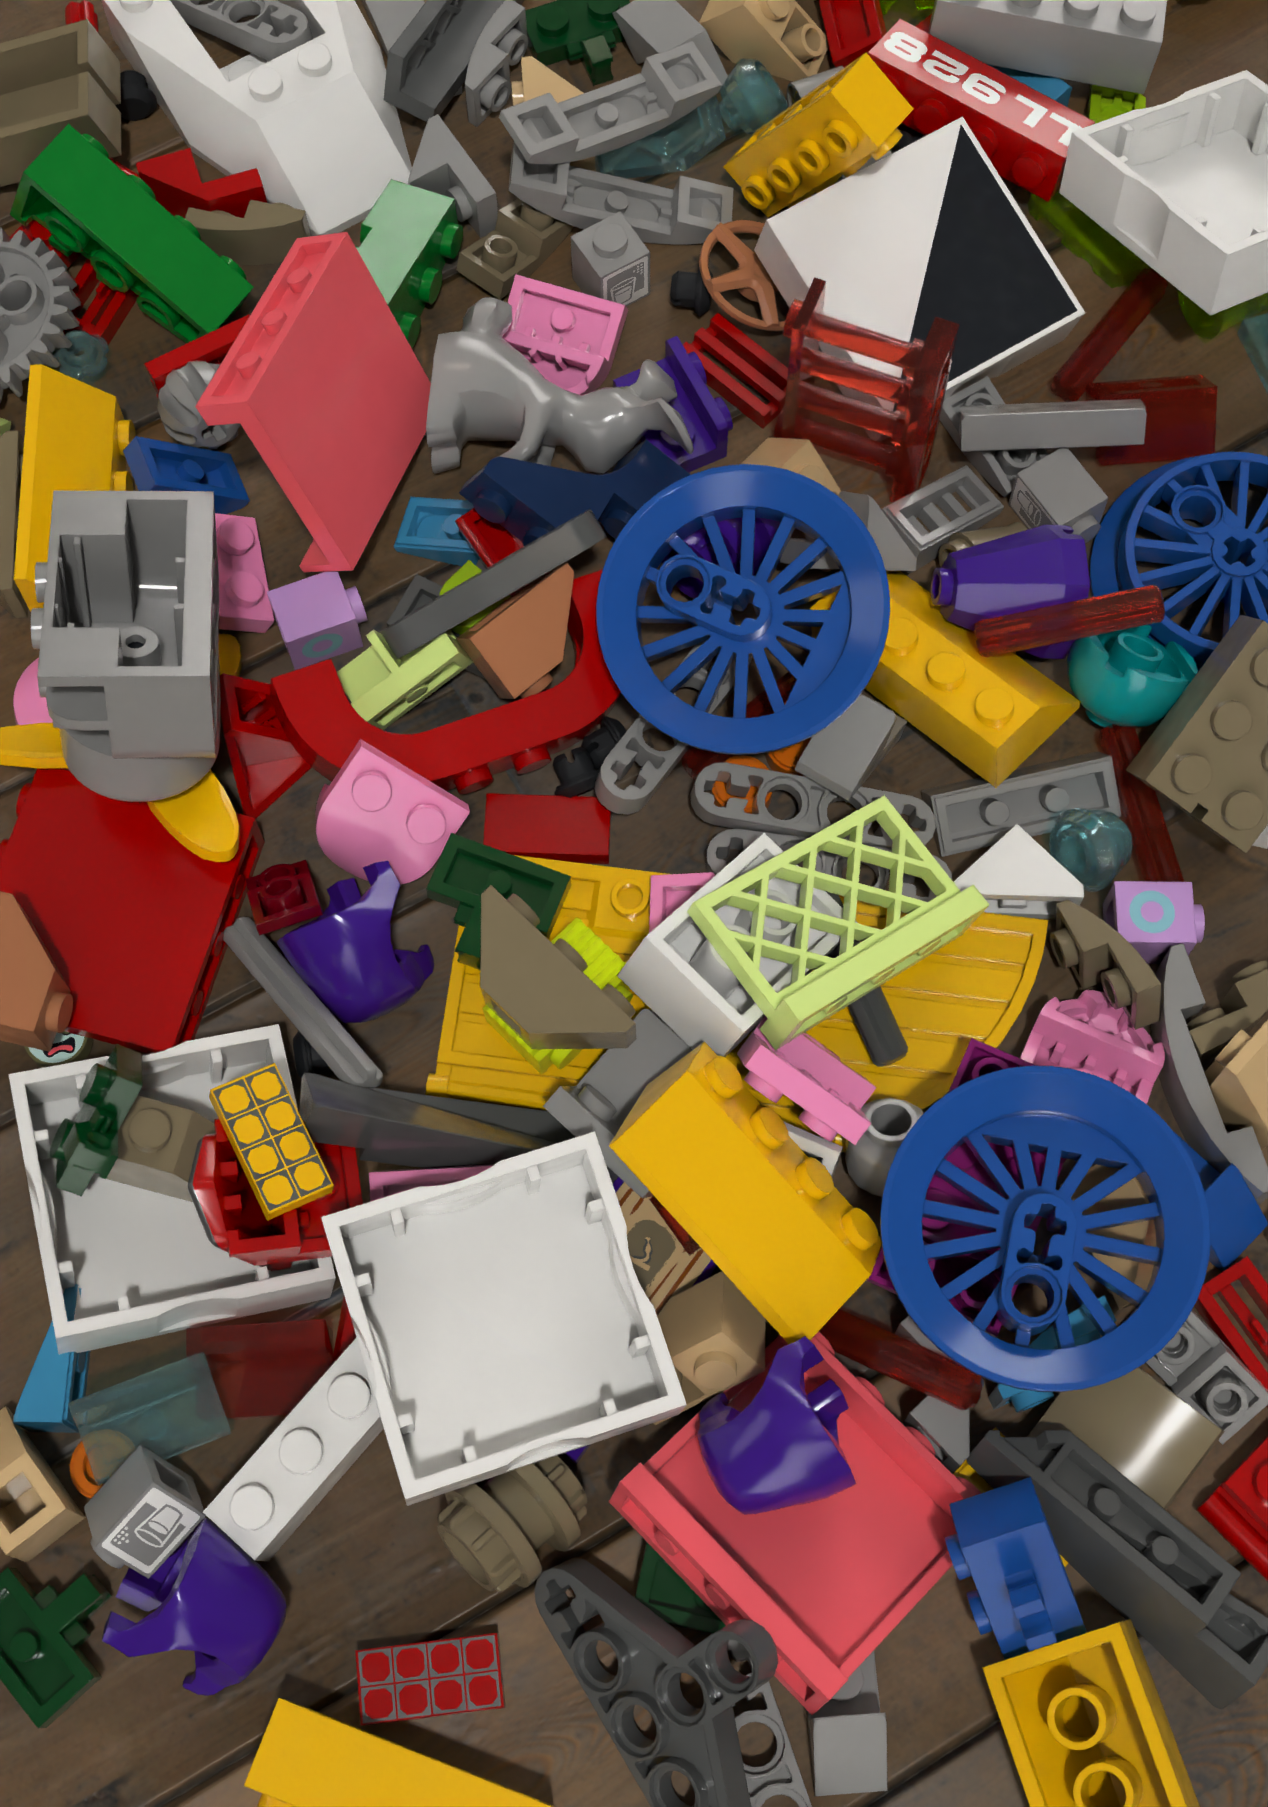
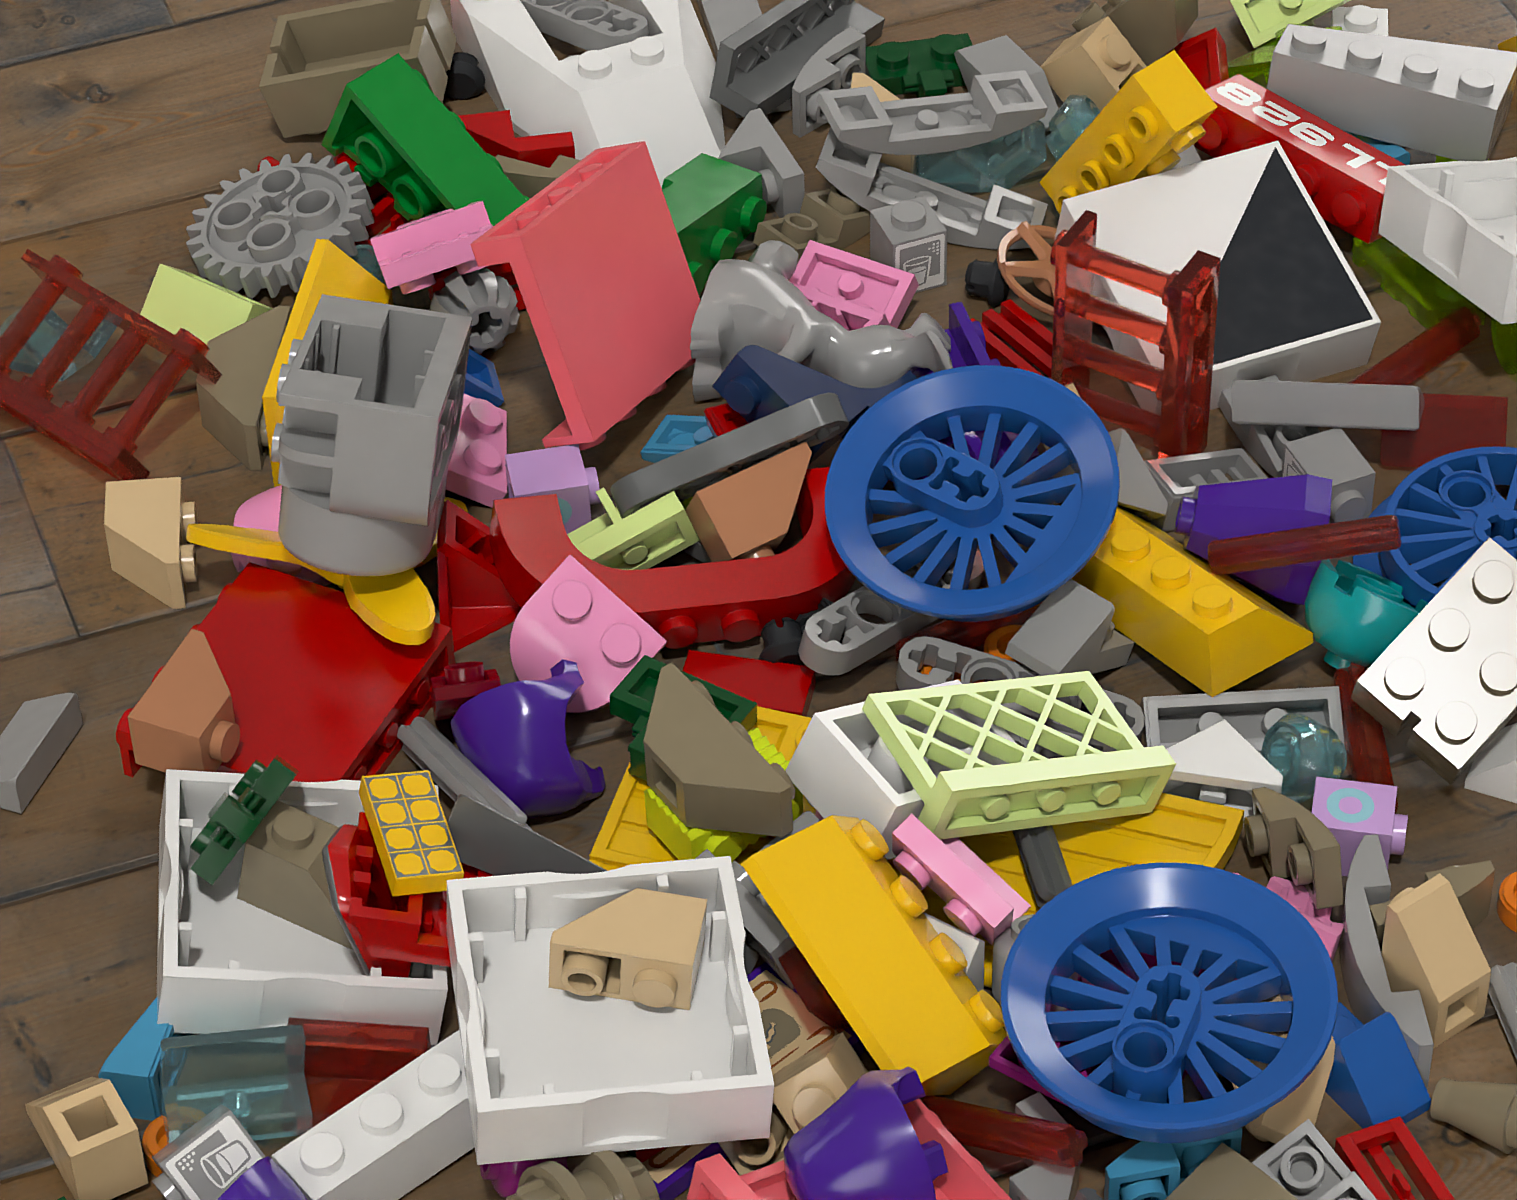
camera: 10 degrees right, 25 degrees down
(150, 346) = (429, 246): none -> bright pink slope
(520, 1242) = (633, 949): none -> tan slope

